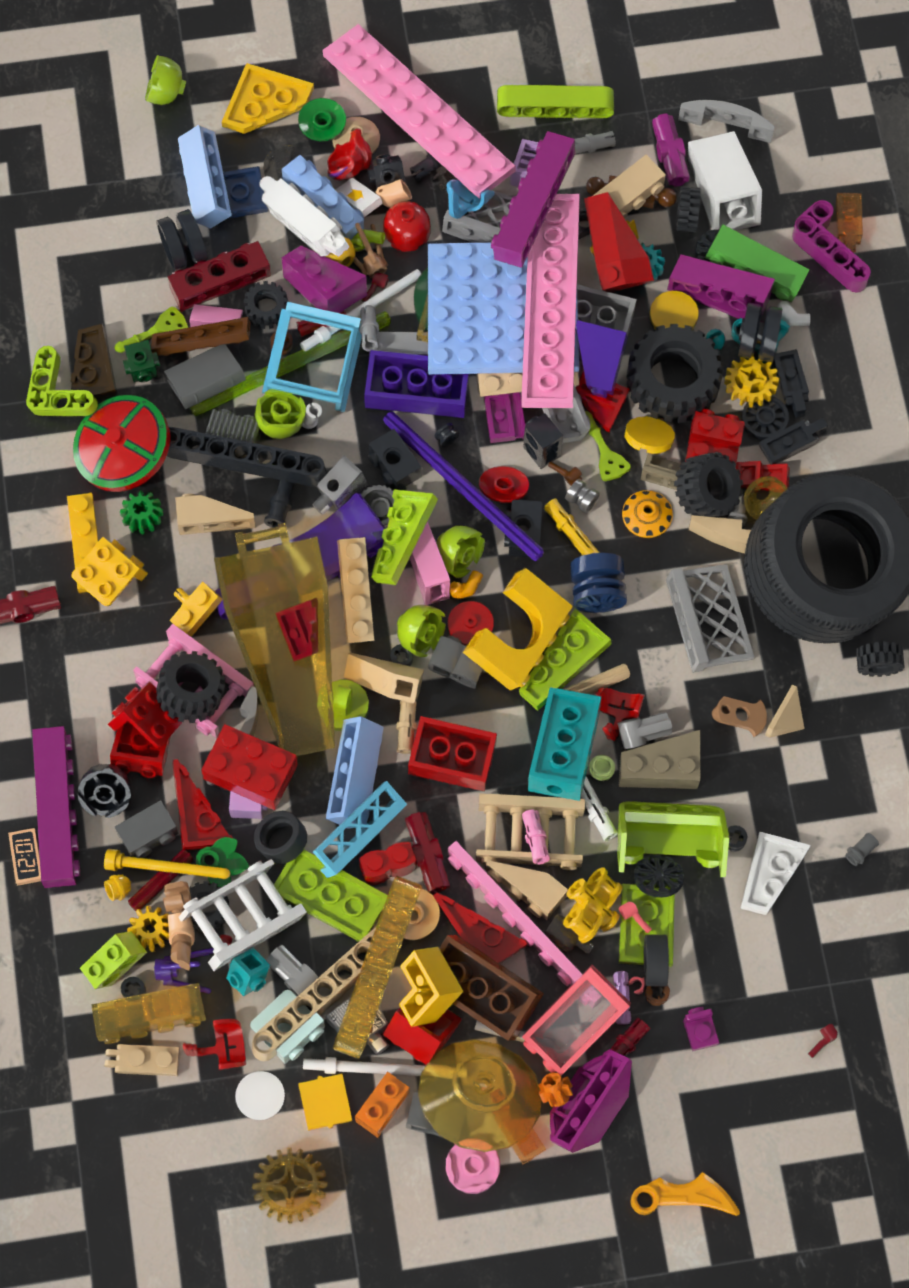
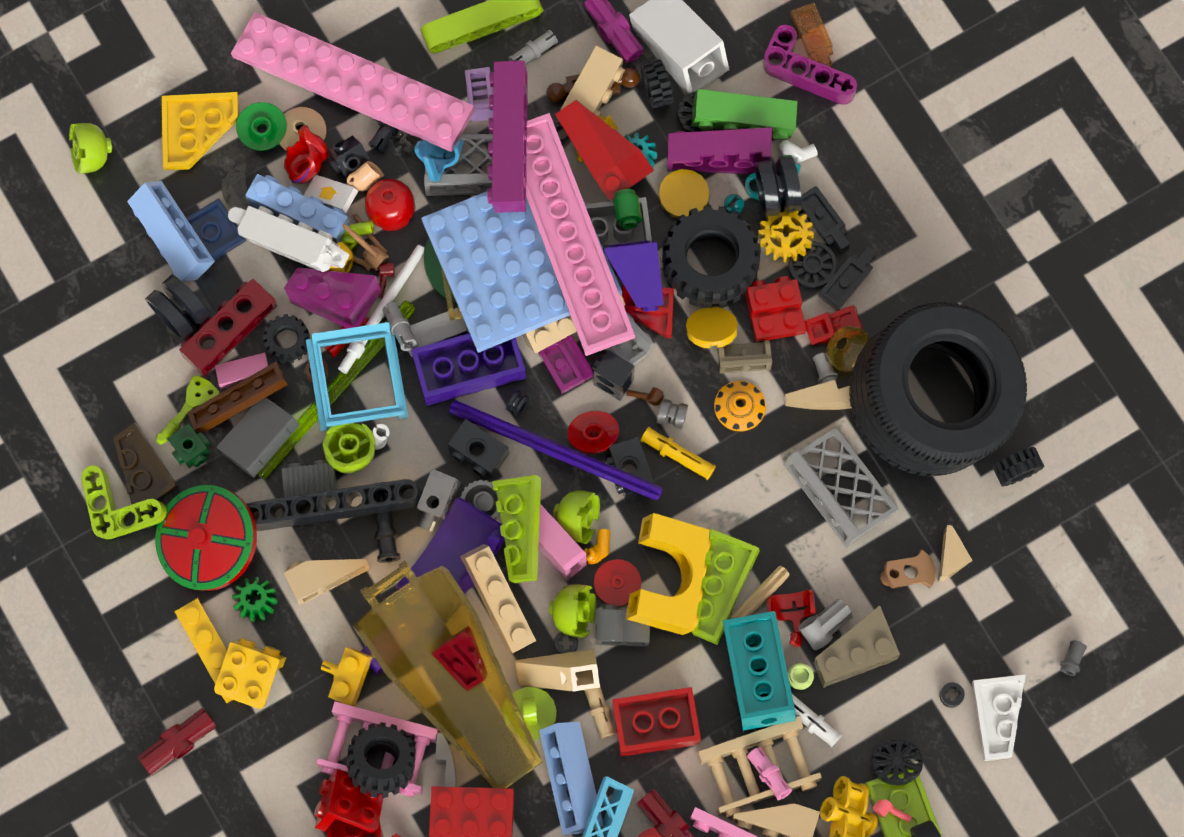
camera: 20 degrees left, 5 degrees up
(598, 582) = (727, 502): dark blue wheel -> none
(607, 455) = (678, 362): lime piece -> none
(614, 301) = (627, 209): none -> green brick
(672, 831) = (892, 711): lime windscreen -> none
(723, 480) = (805, 355): black tyre -> none

